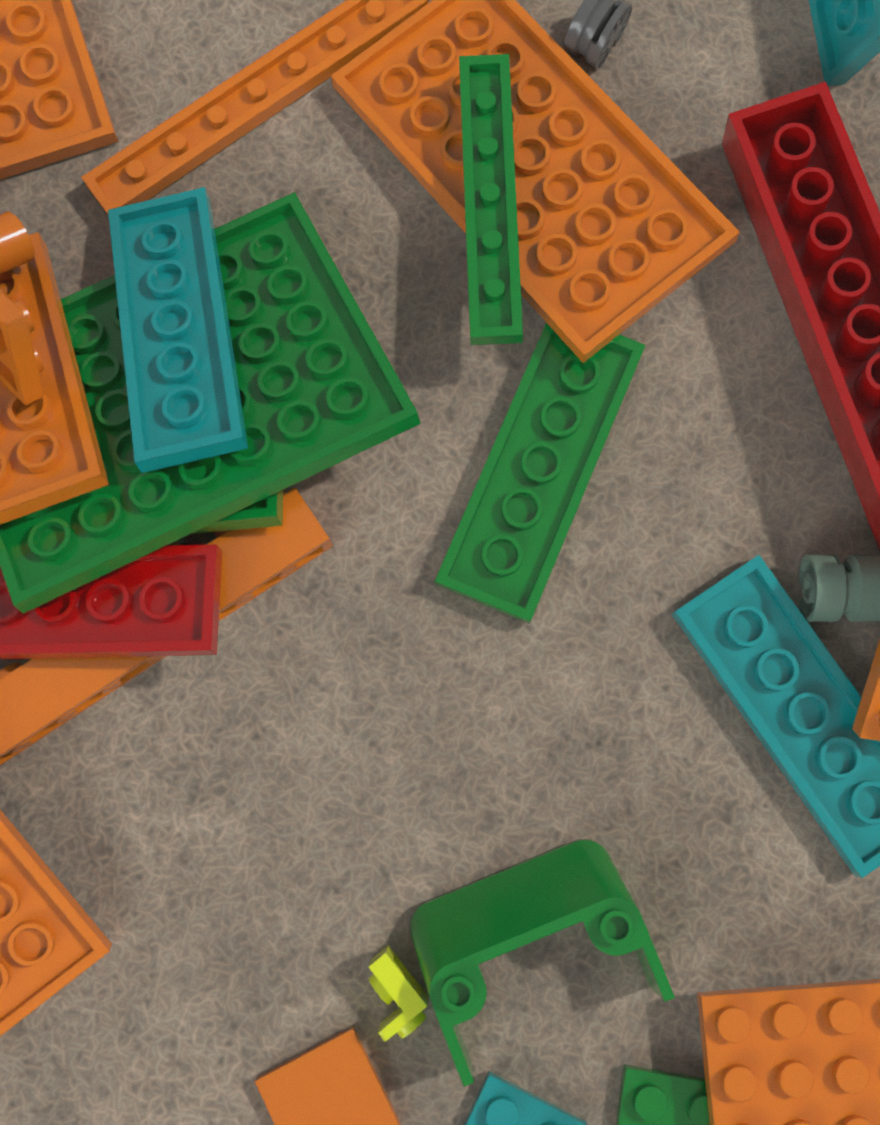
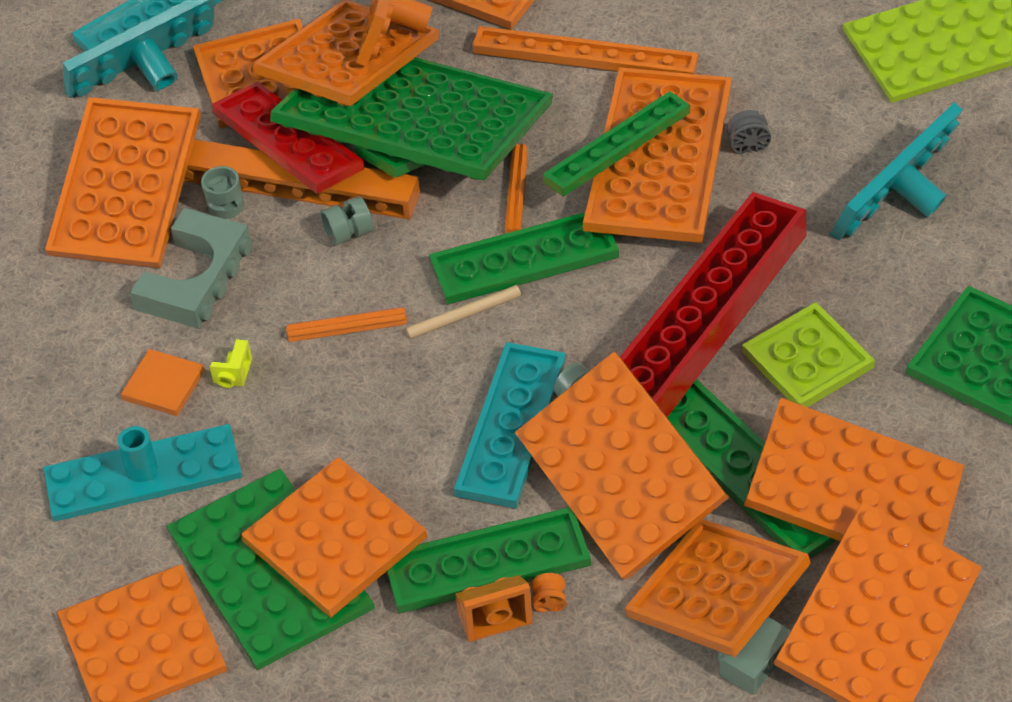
camera: 55 degrees right, 30 degrees down
(64, 763) = (222, 192): none -> sand green wheel
(175, 332) = (441, 88): teal plate -> none
(225, 956) = (193, 299): none -> sand green arch
(269, 654) = (347, 220): none -> sand green wheel
(430, 390) = (516, 188): none -> orange axle
(447, 780) = (346, 324): none -> orange axle
(515, 909) = (338, 392): green windscreen -> none
(558, 614) = (463, 312): none -> tan bar

